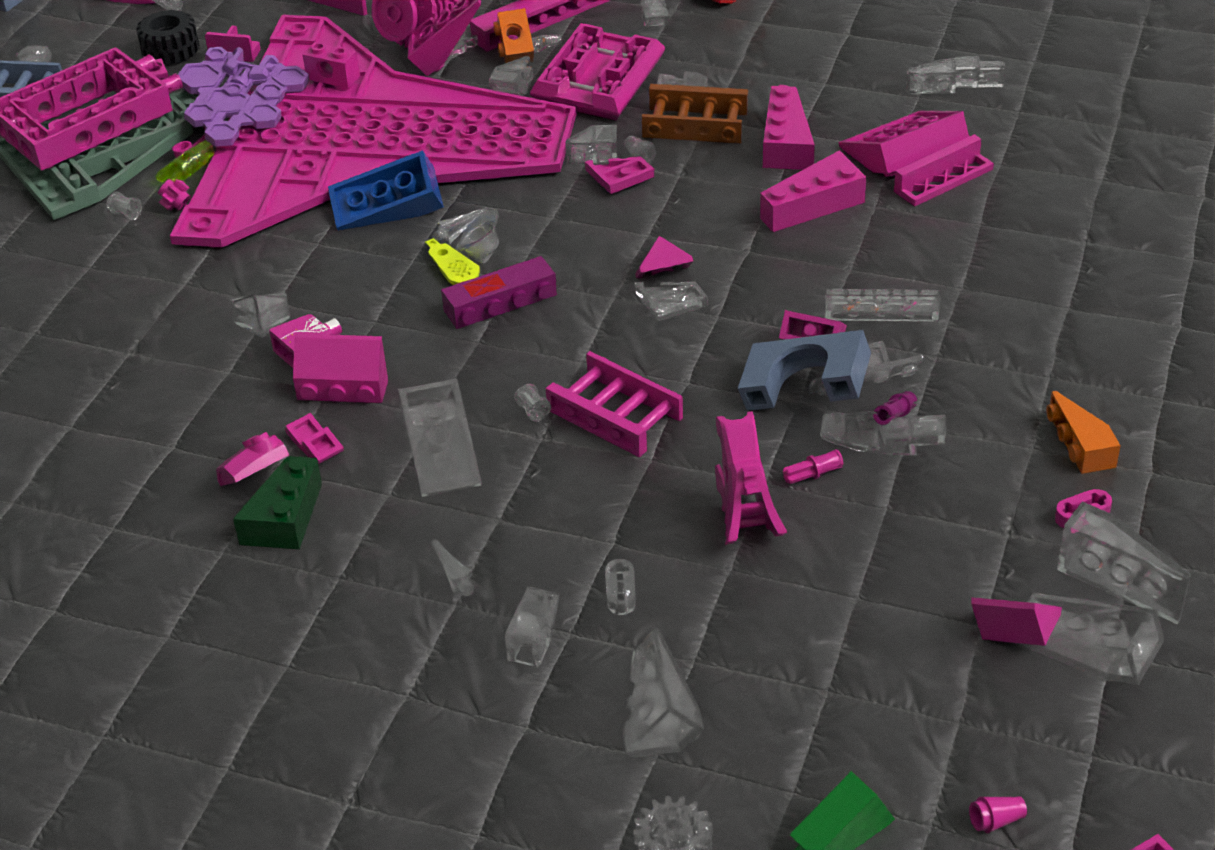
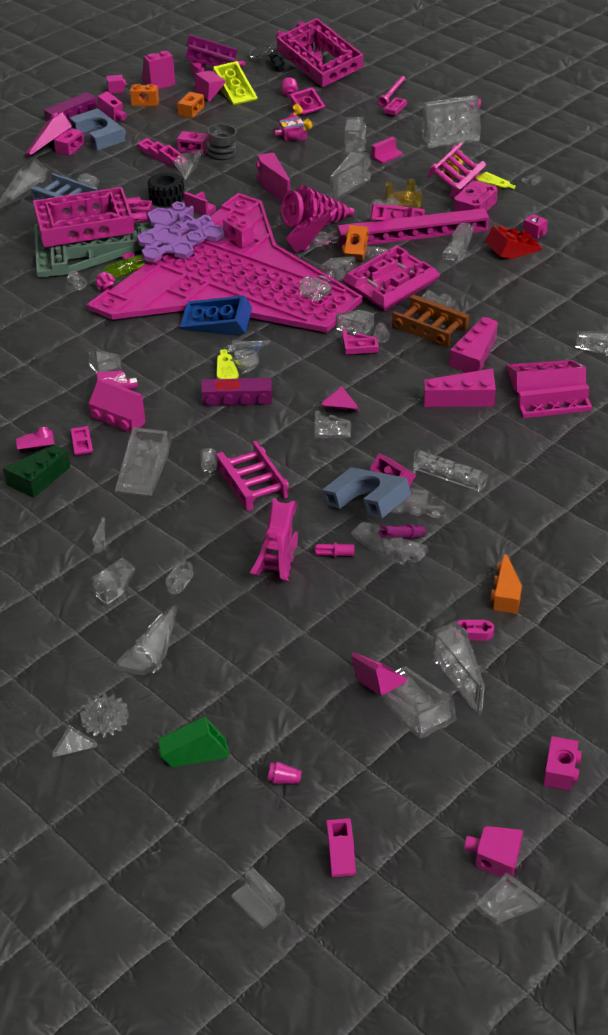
camera: 25 degrees right, 0 degrees up
(504, 113) = (315, 287): none -> clear plate

